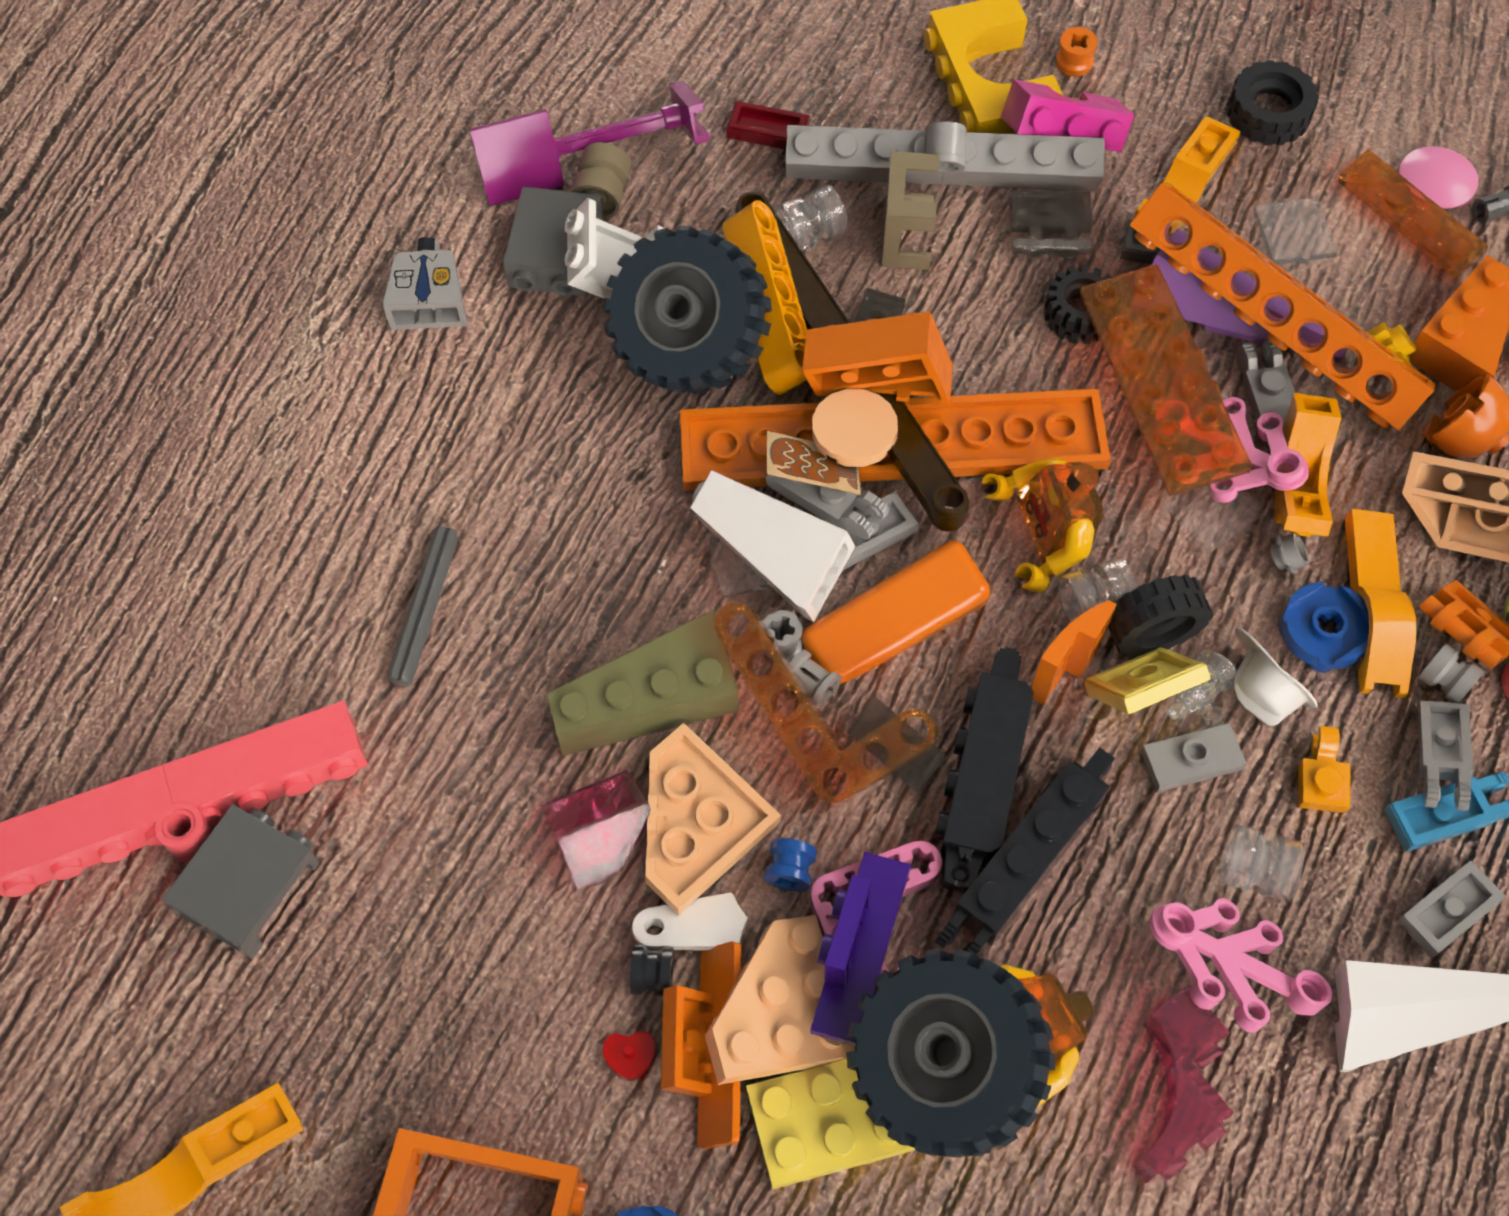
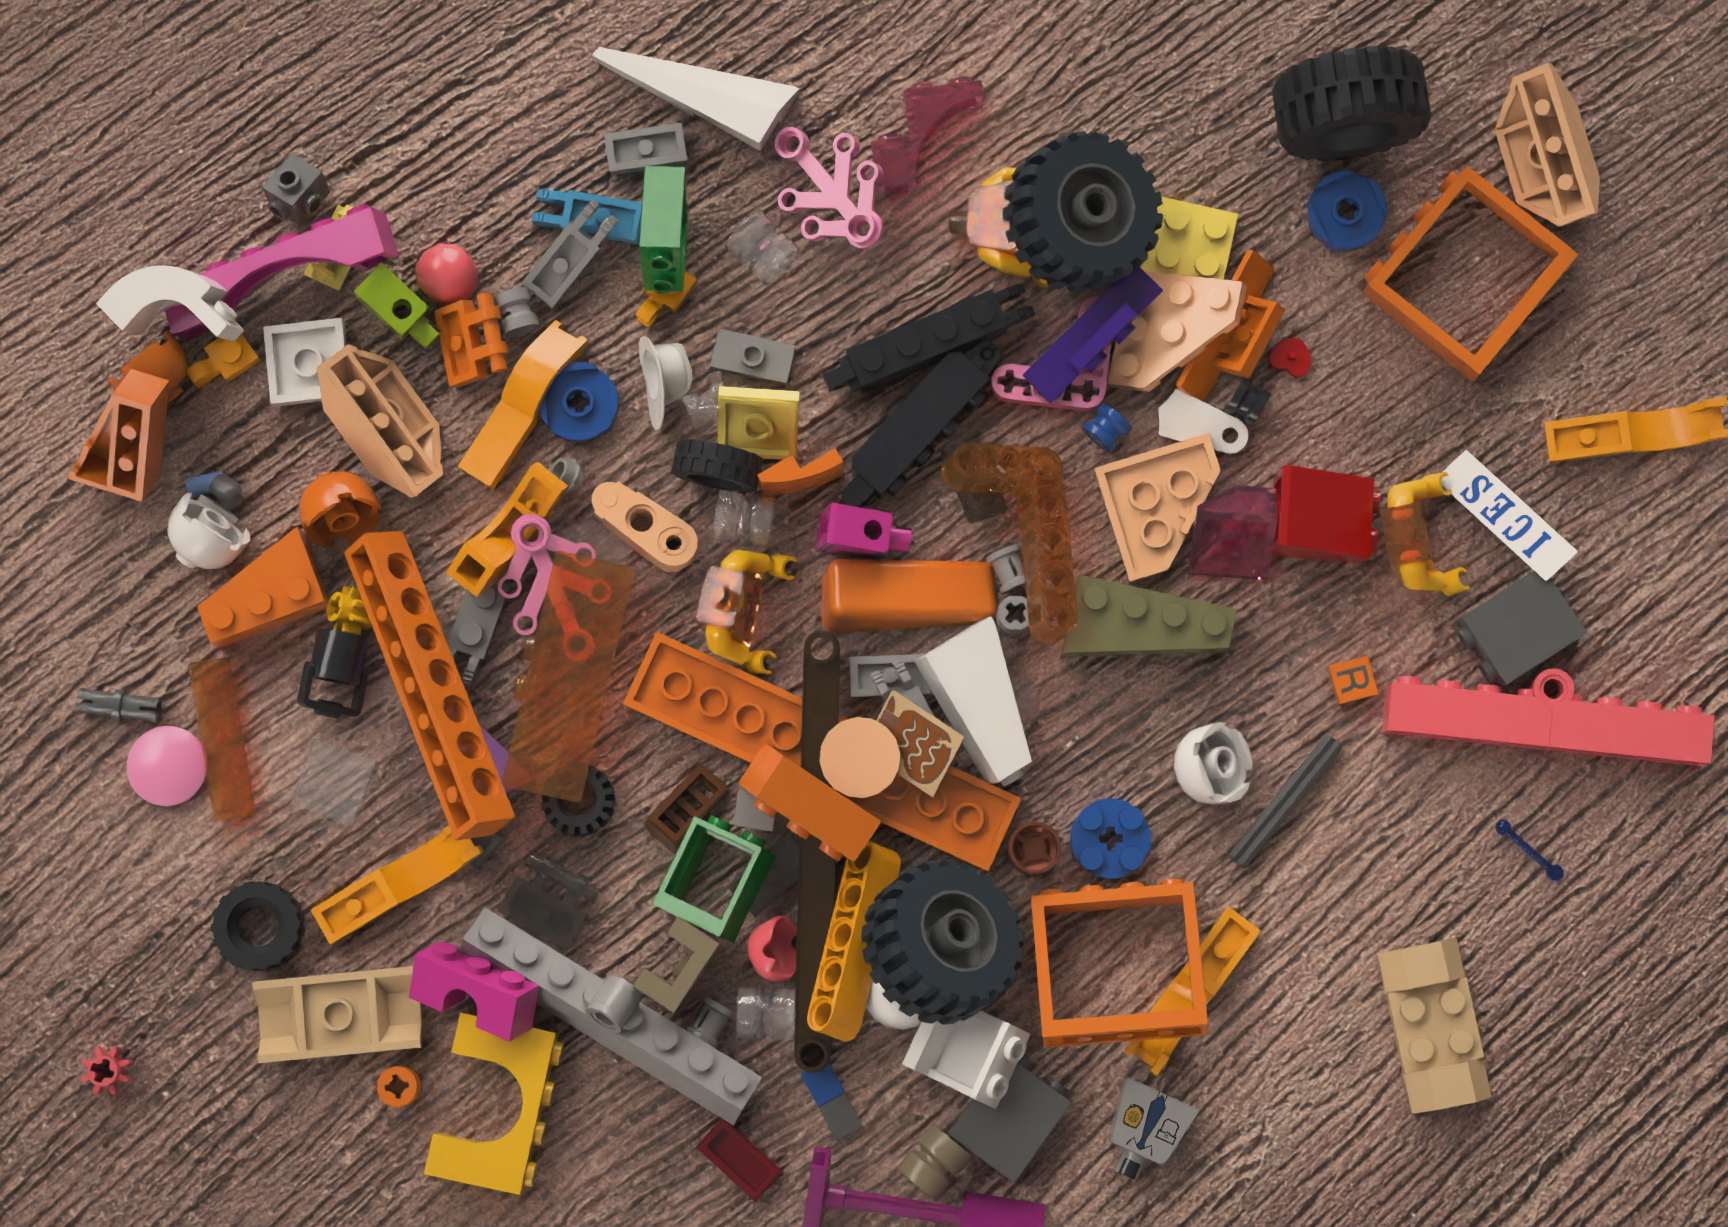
camera: 150 degrees left, 20 degrees up
(119, 671) = (1553, 872): none -> clear blue hinge
(186, 481) = (1434, 1026): none -> tan piece
(304, 990) = (1507, 516): none -> white sticker
(405, 748) = (1352, 680): none -> orange tile
(406, 911) = (1410, 539): none -> torso
(435, 414) = (1219, 955): none -> light orange piece
(484, 321) = (1127, 1026): none -> orange window
(509, 587) = (1213, 764): none -> white cylinder
(509, 883) = (1324, 515): none -> red slope
(577, 474) = (1127, 822): none -> blue plate
(647, 443) = (1033, 848): none -> copper wheel
(710, 197) = (832, 1102): none -> sticker
(836, 262) = (772, 949): none -> coral hair
(856, 198) = (711, 1021): none -> light grey bush
(944, 262) = (685, 866): none -> green window
(980, 628) = (843, 532): none -> dark pink torso
(992, 315) = (661, 831): none -> reddish brown slope
(1161, 68) = (337, 1014): none -> tan piece
(1220, 544) = (619, 506): none -> light nougat piece
(1367, 298) = (340, 660): none -> black piece
(1377, 810) = (664, 229): none -> window

